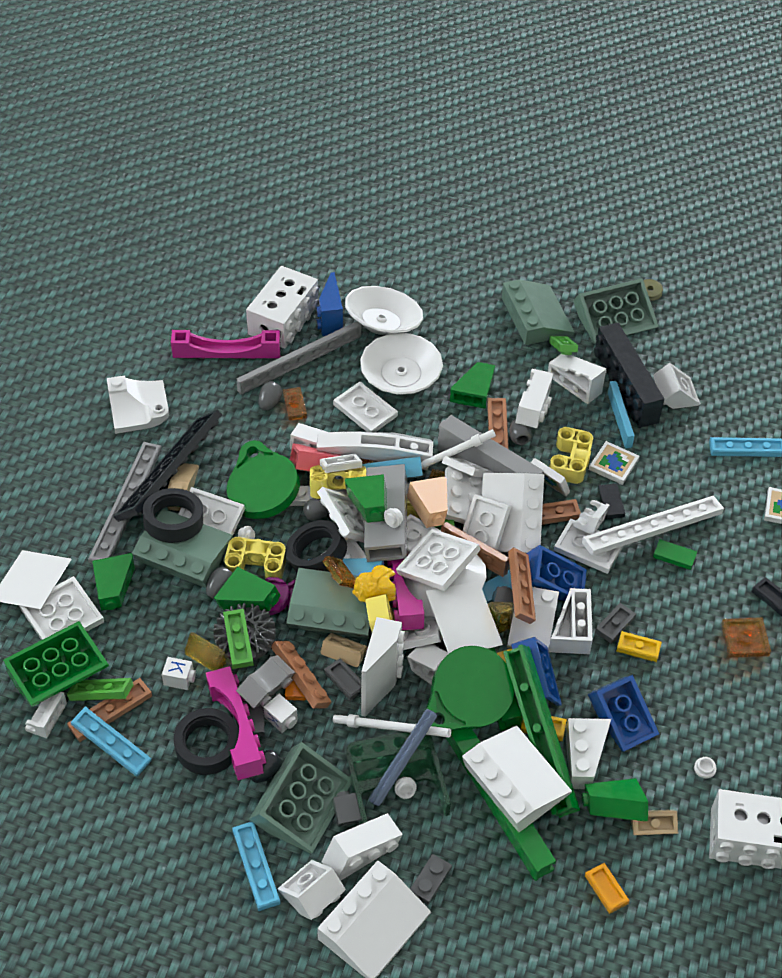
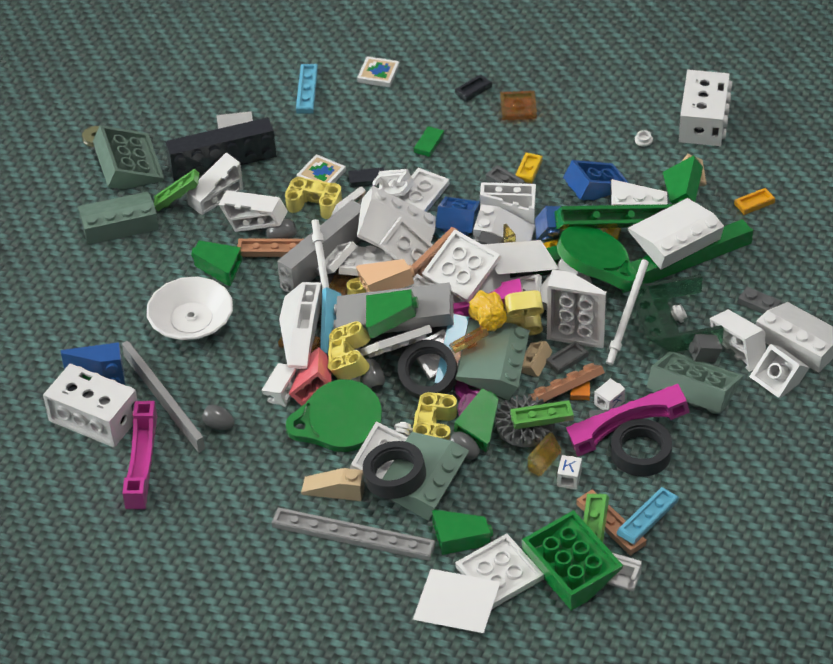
camera: 85 degrees left, 5 degrees down
(137, 403) = (217, 531): white slope -> none
(168, 465) = (317, 489): black plate -> none
(256, 866) = (758, 412): medium azure tile -> none
(266, 682) = (584, 398): light grey brick -> none
(294, 403) = (229, 400): clear orange plate -> none
(340, 463) = (334, 353): white tile -> none
(365, 408) = (239, 344): white plate -> none
(383, 310) = (113, 319): white dish -> none
(393, 517) = (419, 288): white plate -> none
(402, 757) = (658, 298): sand blue axle -> none
(521, 586) = (475, 220): nougat plate -> none
(621, 414) = (269, 161): medium azure tile -> none
(652, 525) = (403, 147): white plate -> none

